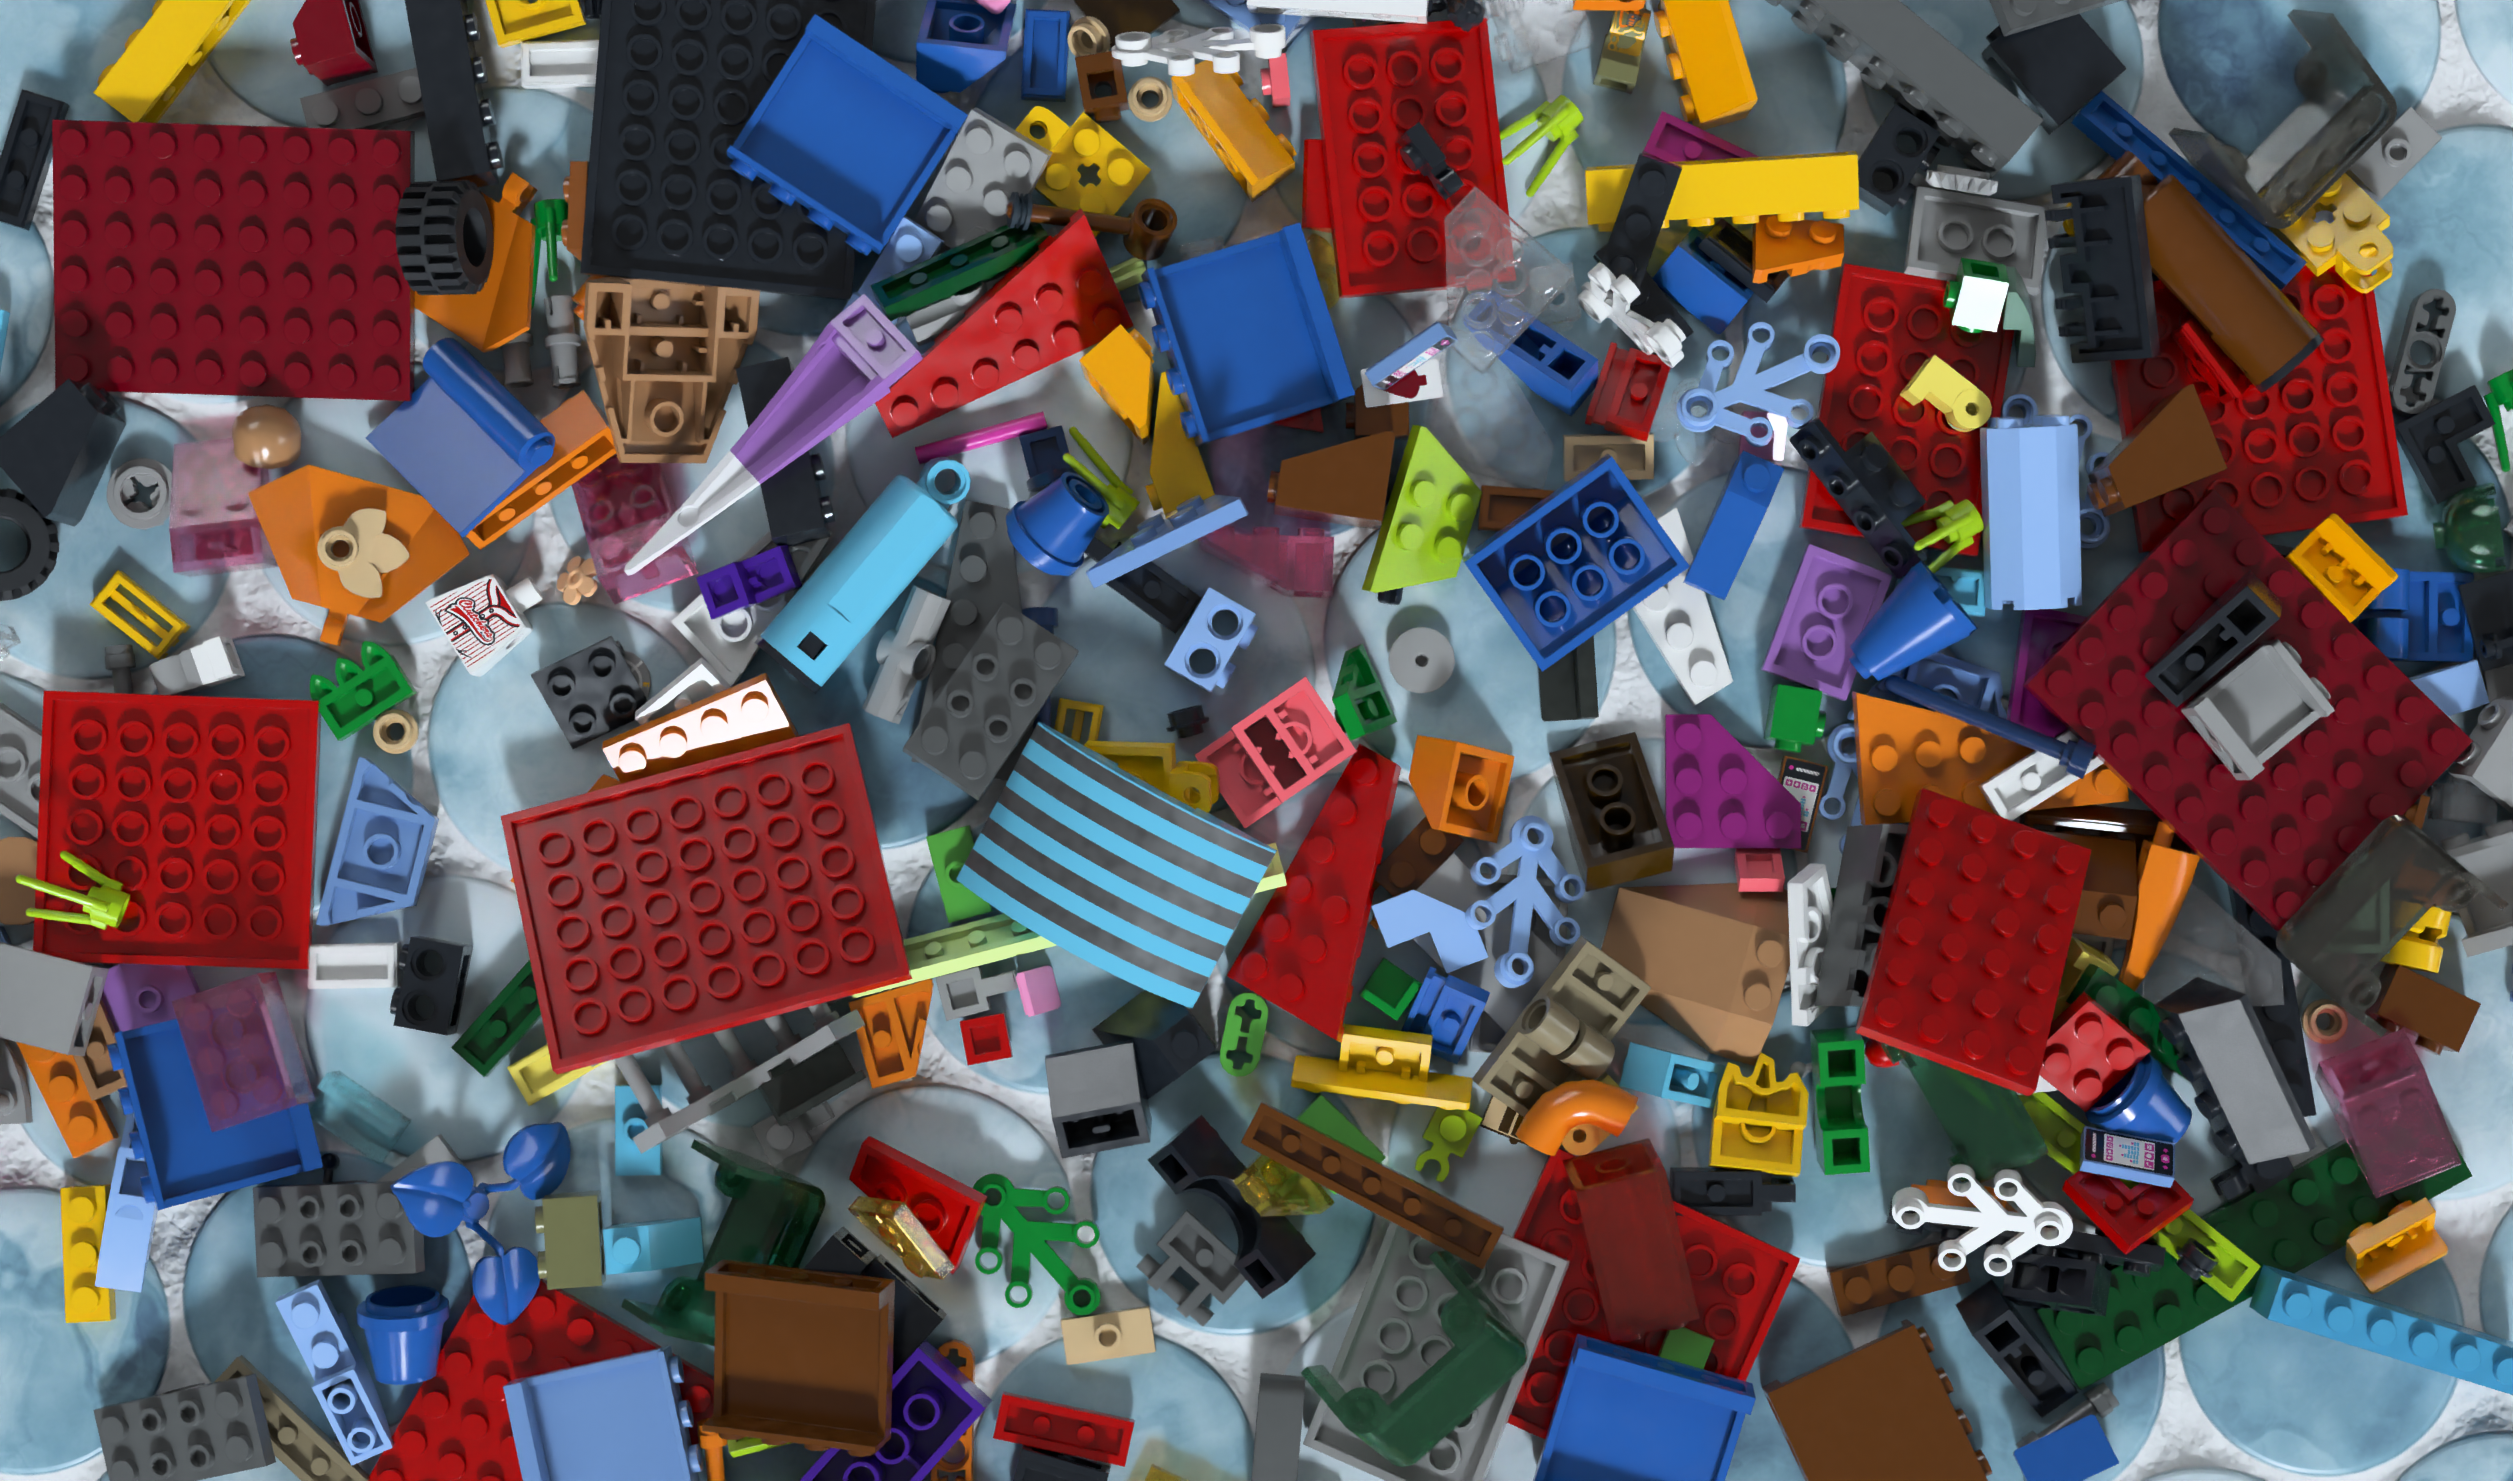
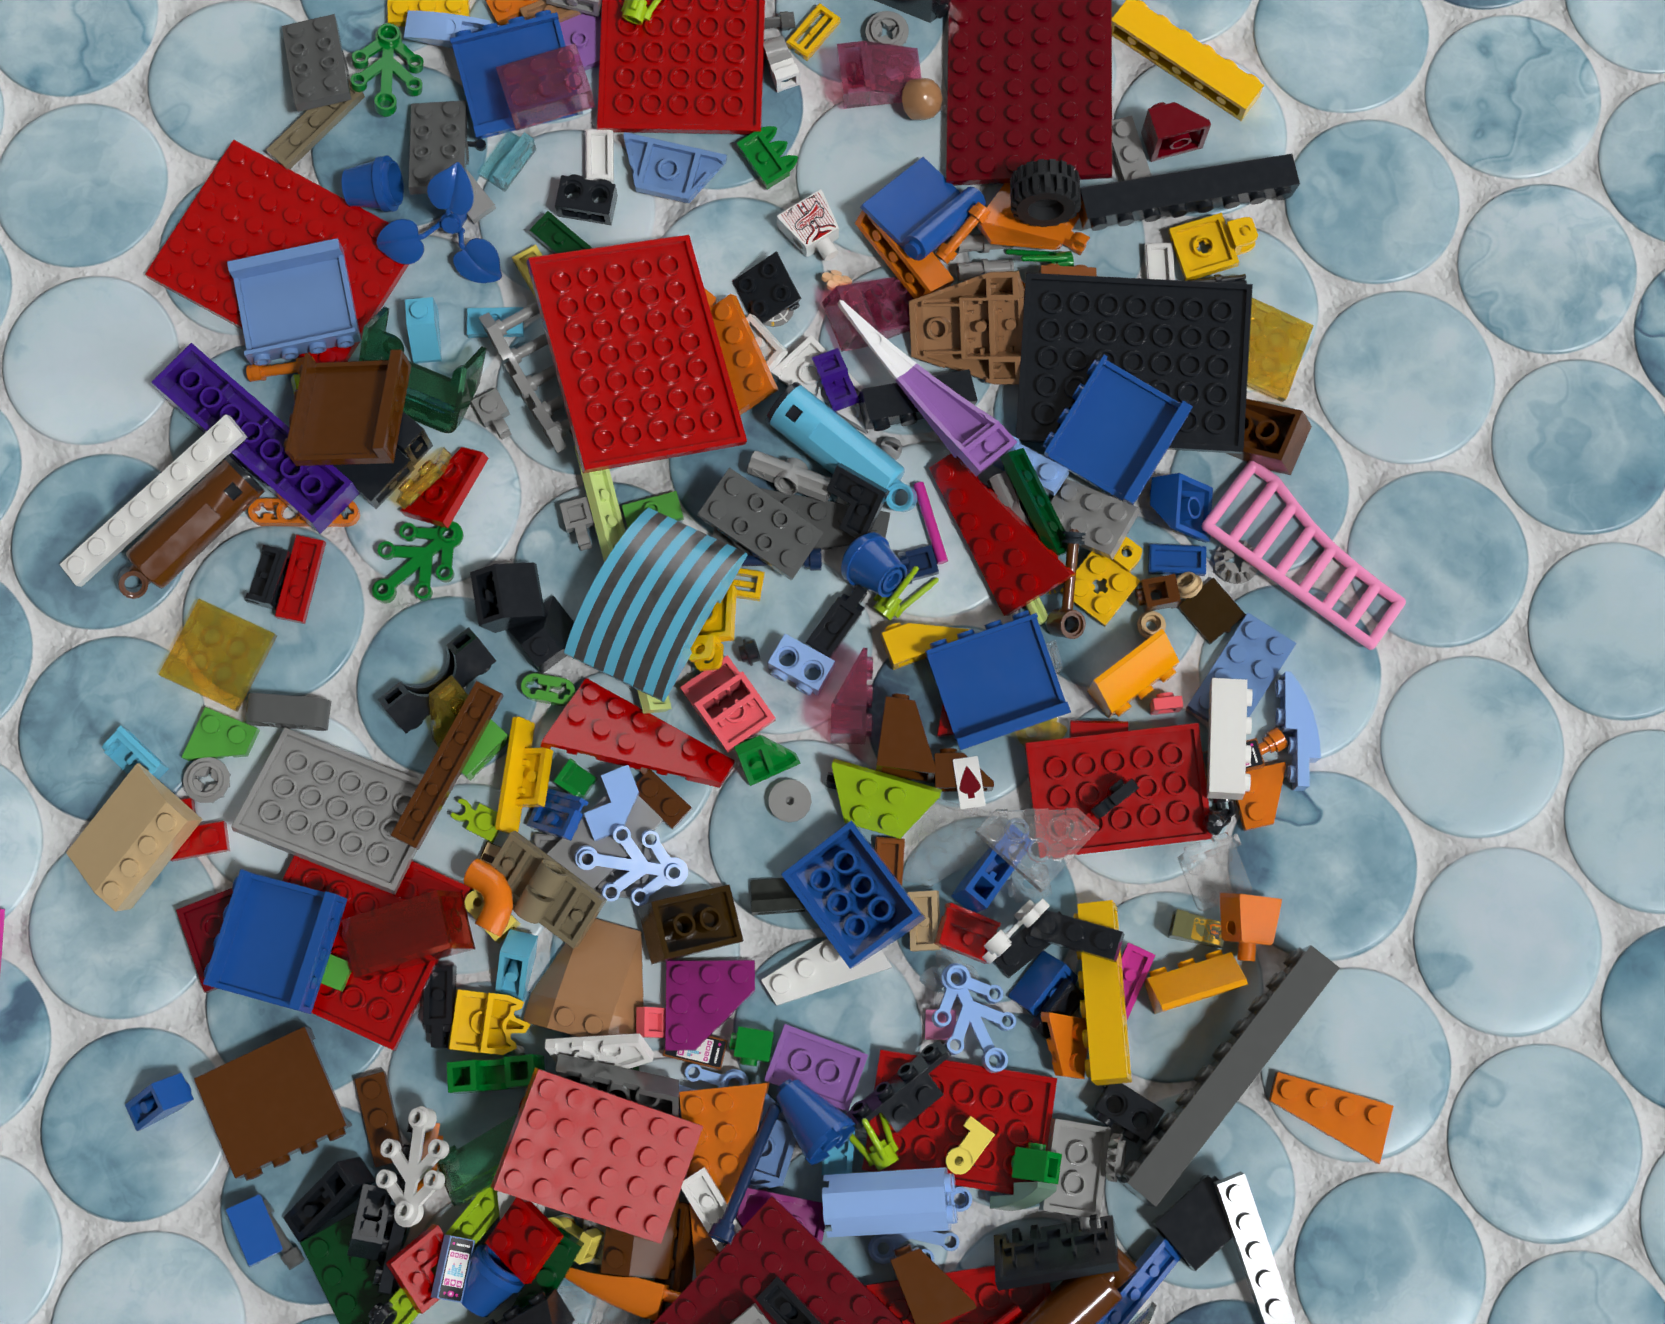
camera: 90 degrees right, 10 degrees down
(191, 1318) = (387, 66): none -> green plant
(314, 499) = (856, 147): orange panel -> none
(338, 1371) = (352, 150): light blue slope -> none
(369, 552) = (849, 157): tan plate -> none
(382, 728) = (742, 170): tan plate -> none
(475, 347) = (978, 214): none -> orange bar
(572, 1240) = (427, 280): olive brick -> none
(810, 1084) = (521, 421): pearl dark grey panel -> none
(866, 500) = (890, 451): none -> light grey hinge
(893, 1031) = (553, 472): orange wing -> none
(950, 536) = (864, 496): none -> black plate
(986, 1038) = (548, 529): red plate -> none
(1038, 990) = (578, 560): bright pink slope -> none
(1108, 1335) = (359, 607): tan plate -> none
(1124, 378) = (966, 603): light orange slope -> none
(1161, 536) = (866, 627): medium blue wing -> none
(1201, 1256) = (405, 664): dark grey plate -> none
(1215, 45) = (1181, 612): white plant -> none
(1410, 355) = (985, 783): medium blue tile -> none
(1460, 1382) = (331, 832): clear green windscreen -> none
(1461, 786) = (706, 825): orange slope -> none
(1554, 121) = (1147, 884): lime plant -> none
(1733, 524) = (880, 1002): blue slope -> none

